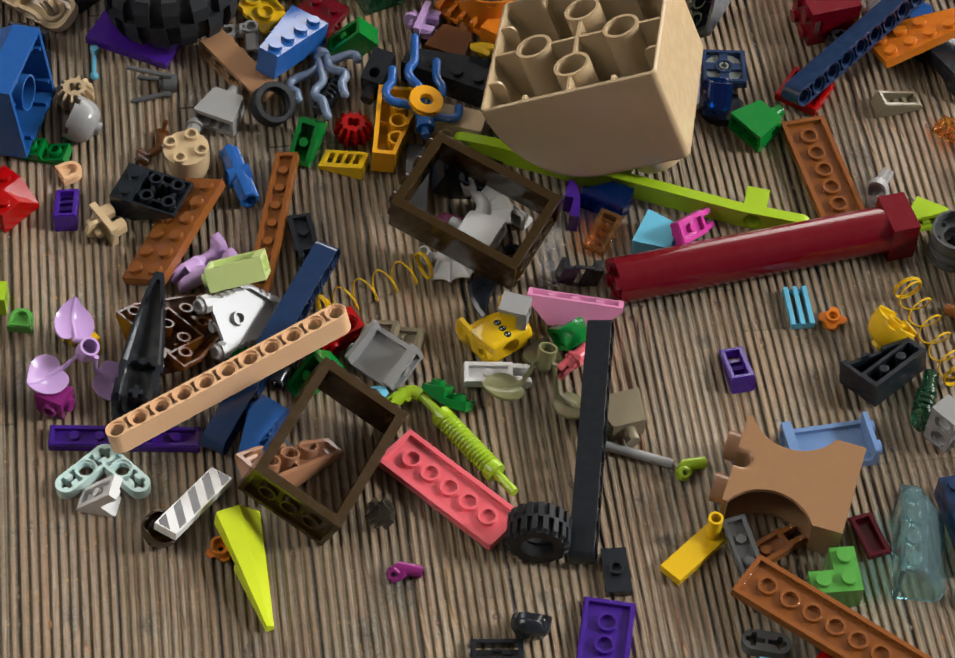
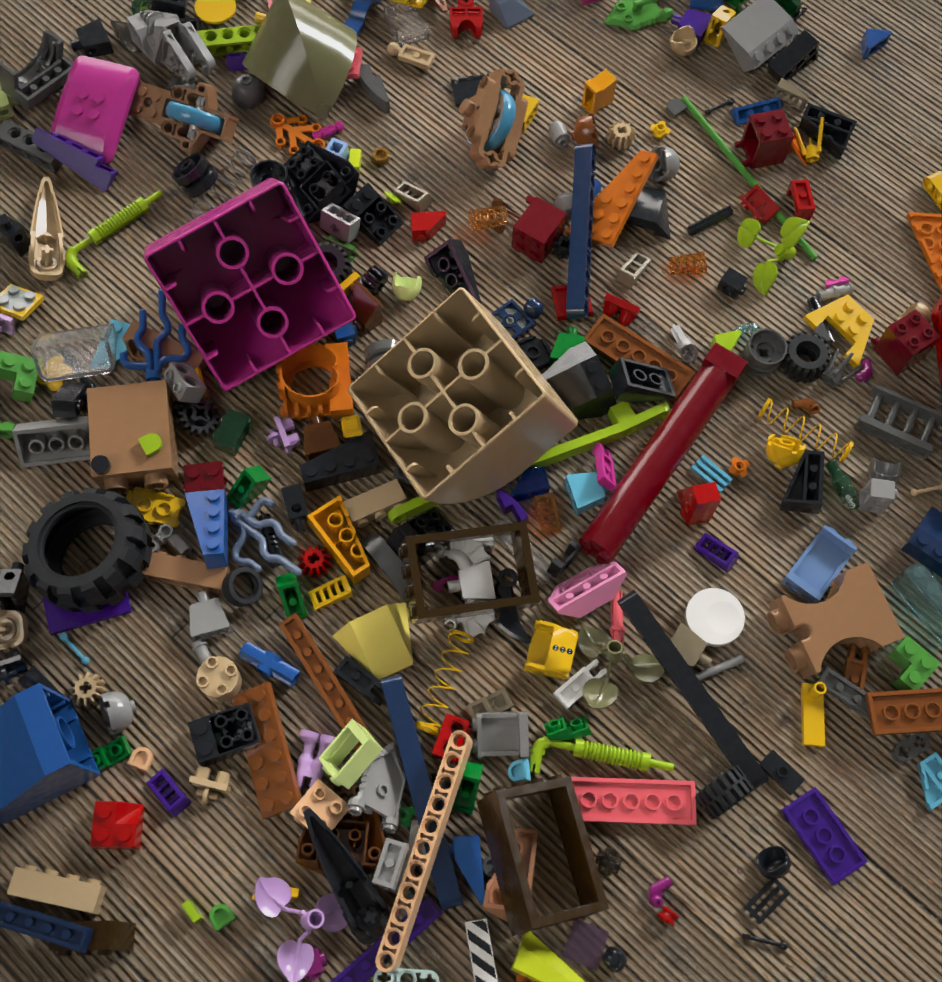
camera: 40 degrees left, 15 degrees up
(146, 156) = (182, 672): reddish brown piece -> none
(166, 80) = (145, 625): dark grey plant -> none
(179, 293) = (323, 802): none -> light nougat hinge
(187, 362) = (392, 865): none -> light grey panel
(298, 562) = (585, 944): none -> piece
(311, 585) = (614, 959): none -> black piece
(351, 220) = (379, 640): none -> light yellow wedge
(392, 592) = (668, 916): none -> red bush
(424, 124) = (356, 513): blue plant -> none
(429, 92) = (349, 513): light orange piece -> none
(516, 305) = (564, 630): light grey panel -> none
(568, 335) = (604, 616): green panel -> none
(678, 410) = (715, 616): none -> white piece
(688, 465) = (753, 653): lime arm -> none
(718, 94) = (532, 346): clear blue slope -> none
(730, 152) = (581, 382): none -> black wedge
(753, 307) = (698, 503): none -> red wedge
(758, 70) = (533, 308): none -> dark blue piece
(798, 182) = (640, 382): none -> black slope
(852, 129) = (628, 310): none -> red tile
(869, 535) = (903, 615): dark red tile -> none

